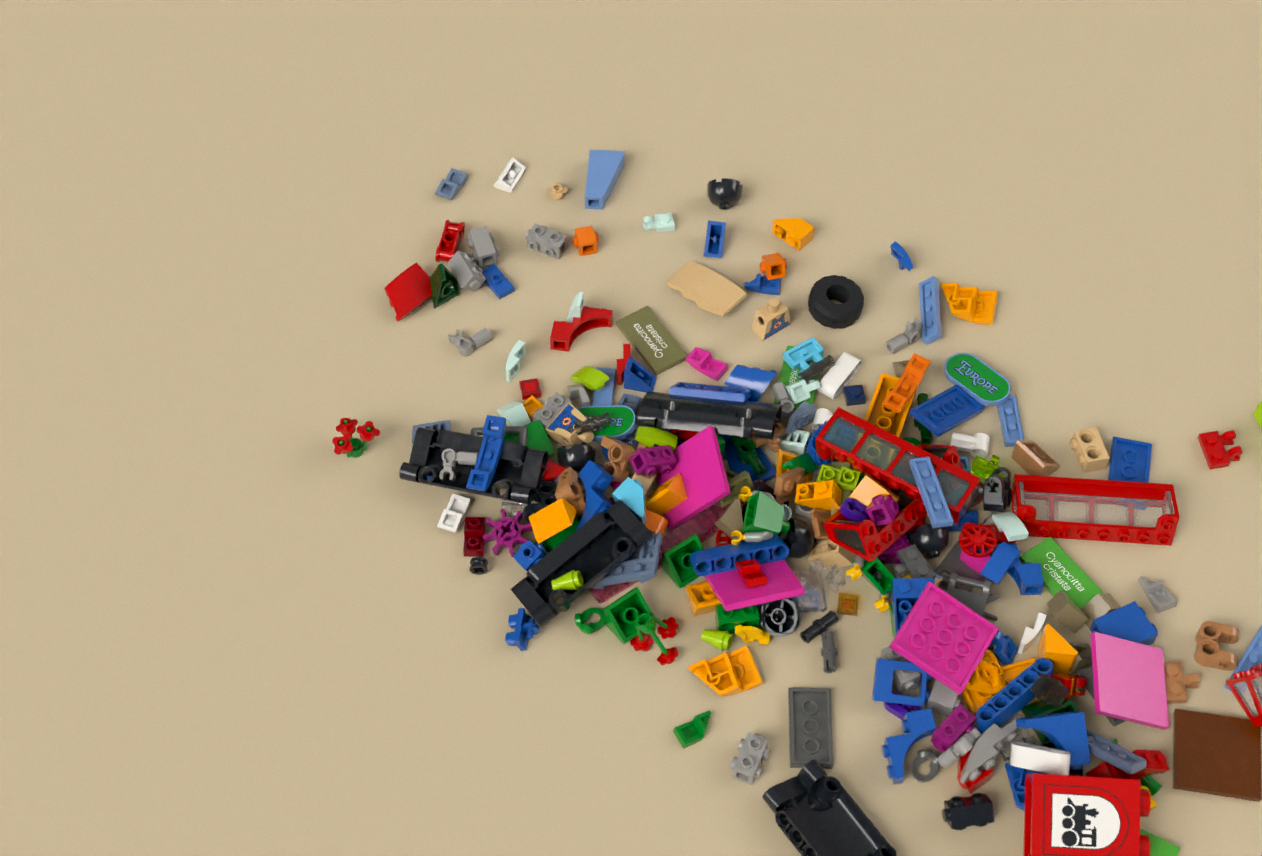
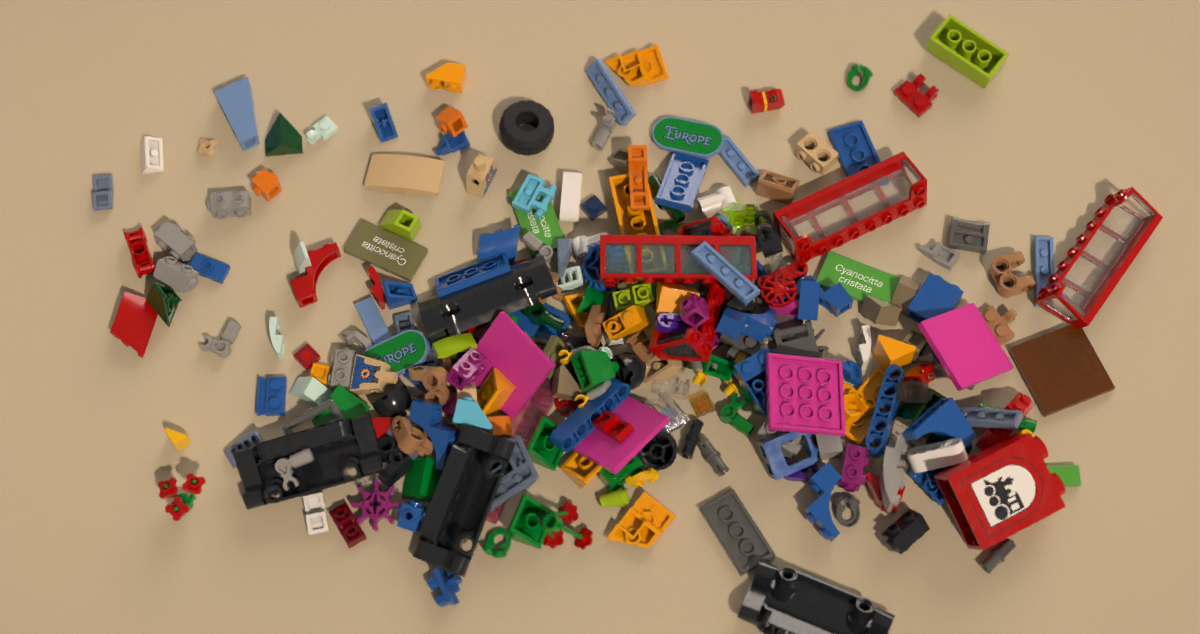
camera: 30 degrees left, 10 degrees up
(382, 396) = (178, 439): none -> yellow slope
(478, 565) = (369, 550): black bush -> none
(480, 404) = (271, 396): none -> blue plate
(489, 454) = (319, 446): blue slope -> none
(552, 519) = (414, 474): light orange slope -> none
(570, 581) = (464, 523): lime cone -> none
(590, 377) = (357, 317): lime slope -> none
(593, 423) = (392, 363): clear smoke pin -> none
(623, 213) = (283, 139): none -> dark green slope
(678, 325) = (401, 223): none -> lime slope
(692, 731) = (644, 591): green slope -> none
(704, 363) = (449, 248): dark pink slope -> none
(724, 193) = (364, 72): black cylinder -> none
(752, 752) = (705, 583): light grey brick -> none
(800, 390) = (547, 229): light aqua plate -> none
(817, 369) = (550, 203): clear smoke pin -> none
(867, 625) = (728, 415): none -> green bar
(900, 254) = (552, 50): blue slope -> none
(936, 558) = (753, 325): none -> blue arch
(958, 749) = (872, 481): light grey bar -> none
(1010, 525) = (796, 260): light aqua slope -> none
(1070, 384) = (766, 100): none -> red leg
(1181, 408) = (867, 73): none -> green piece
(1192, 594) = (968, 240): none -> dark grey plate

